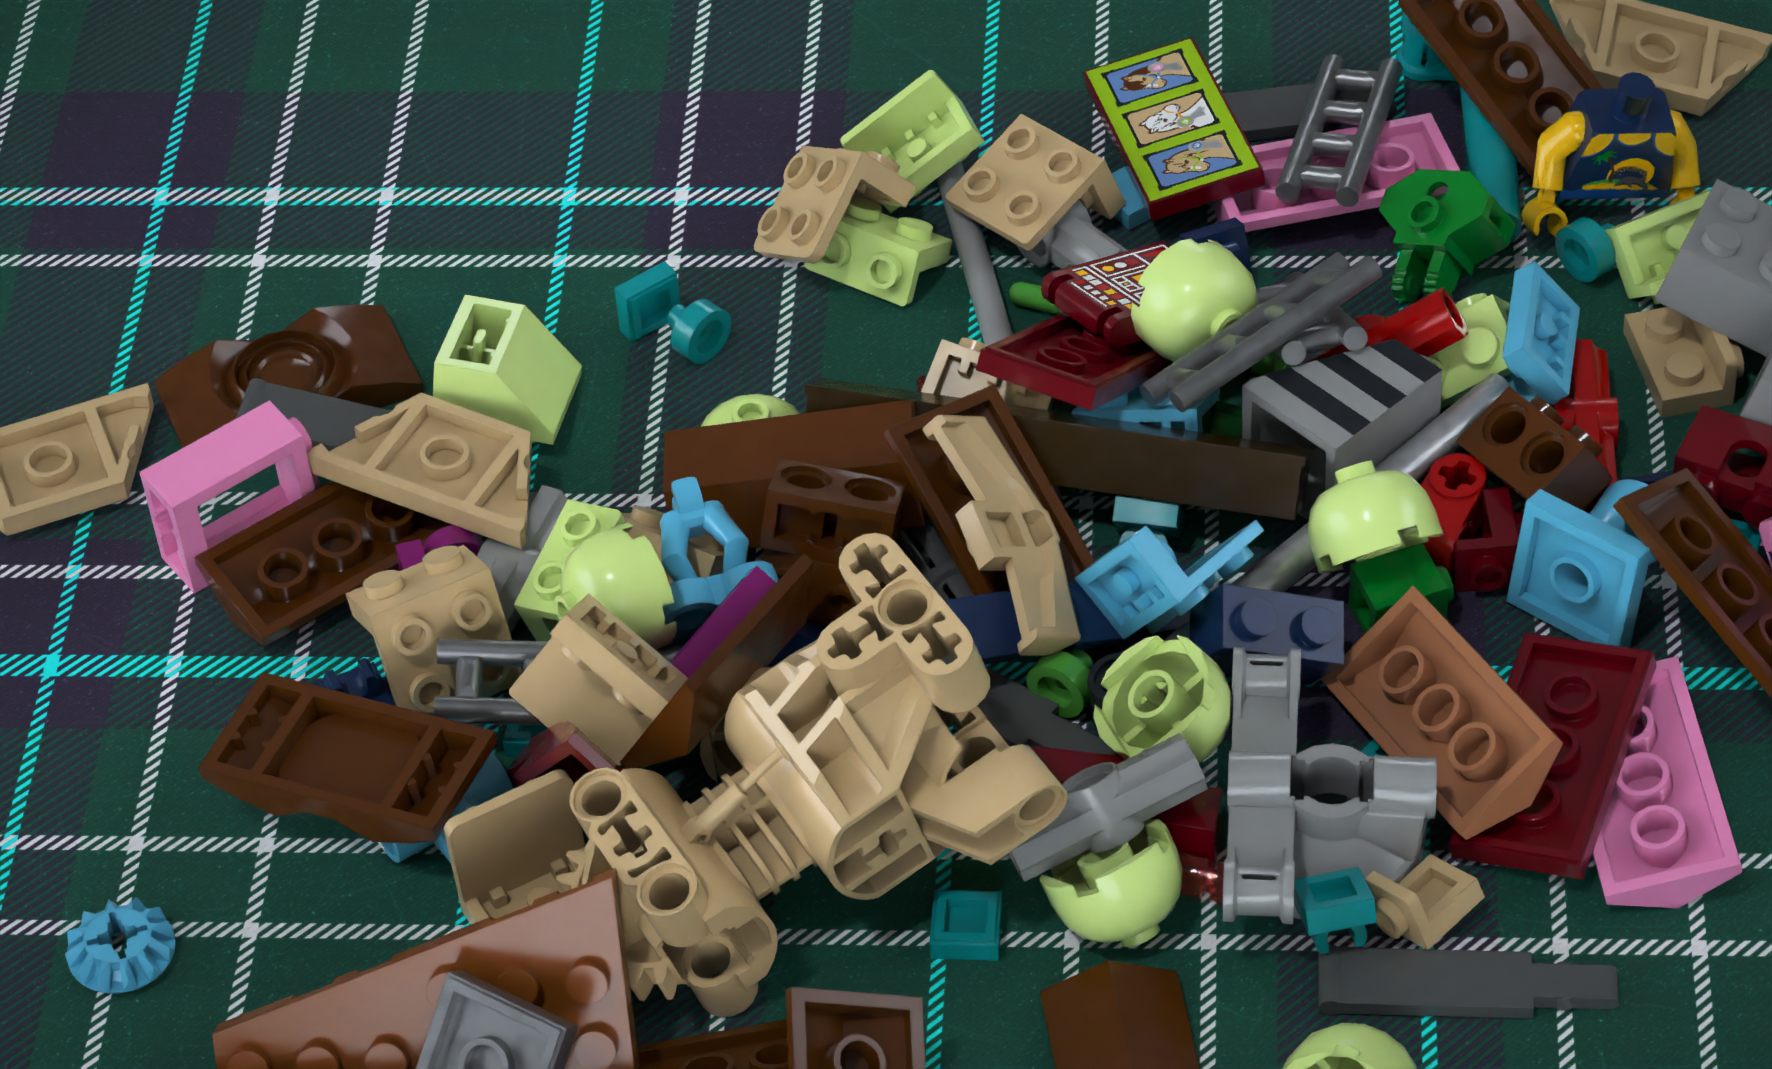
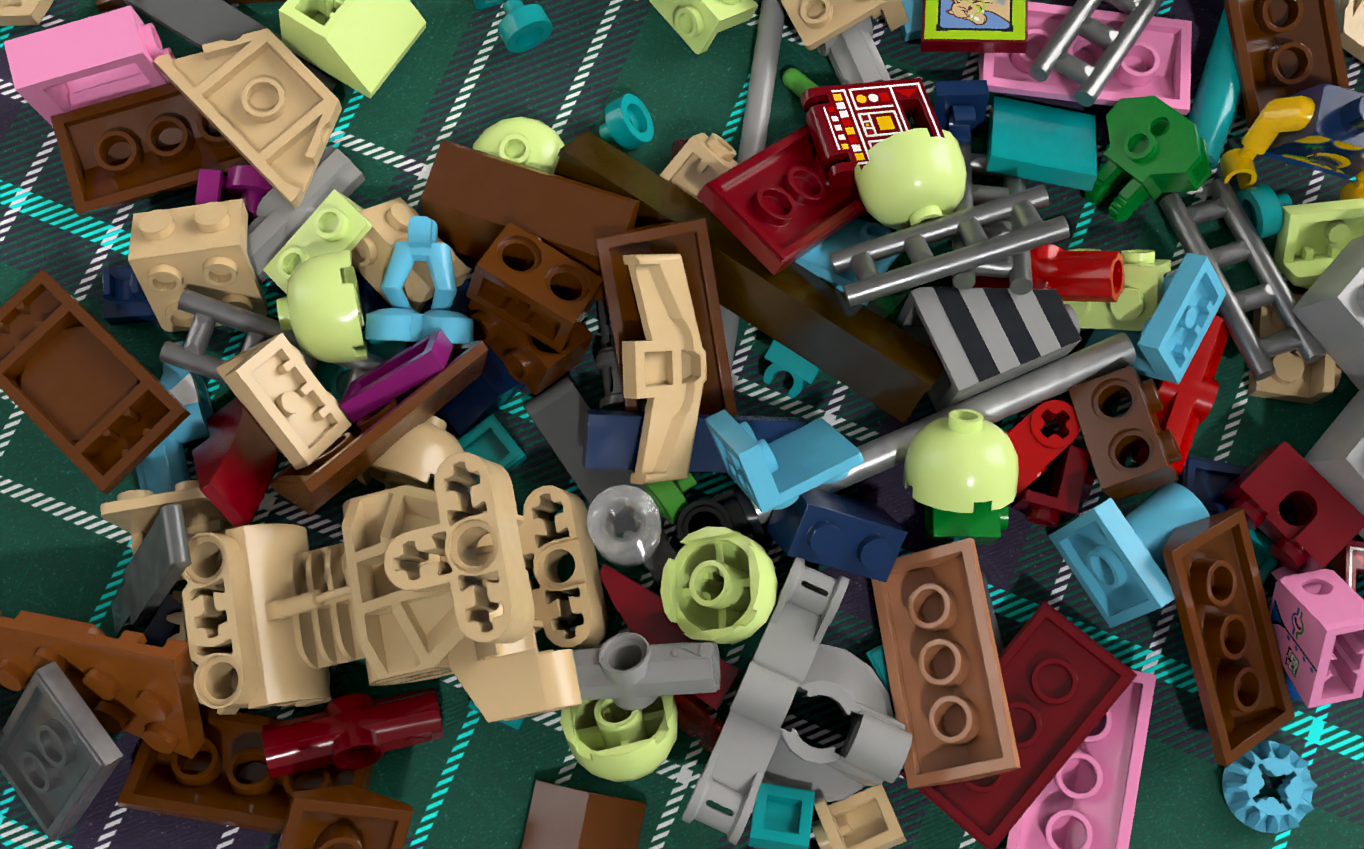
camera: 15 degrees right, 30 degrees up
(541, 831) = (152, 570): none -> dark grey piece
(757, 1012) = (351, 732): none -> dark red piece
(853, 367) = (627, 122): none -> teal tile
(1034, 687) = (615, 506): none -> clear piece
(1290, 257) = (1042, 143): none -> teal tile
(1627, 305) = (1273, 287): none -> flat silver bar

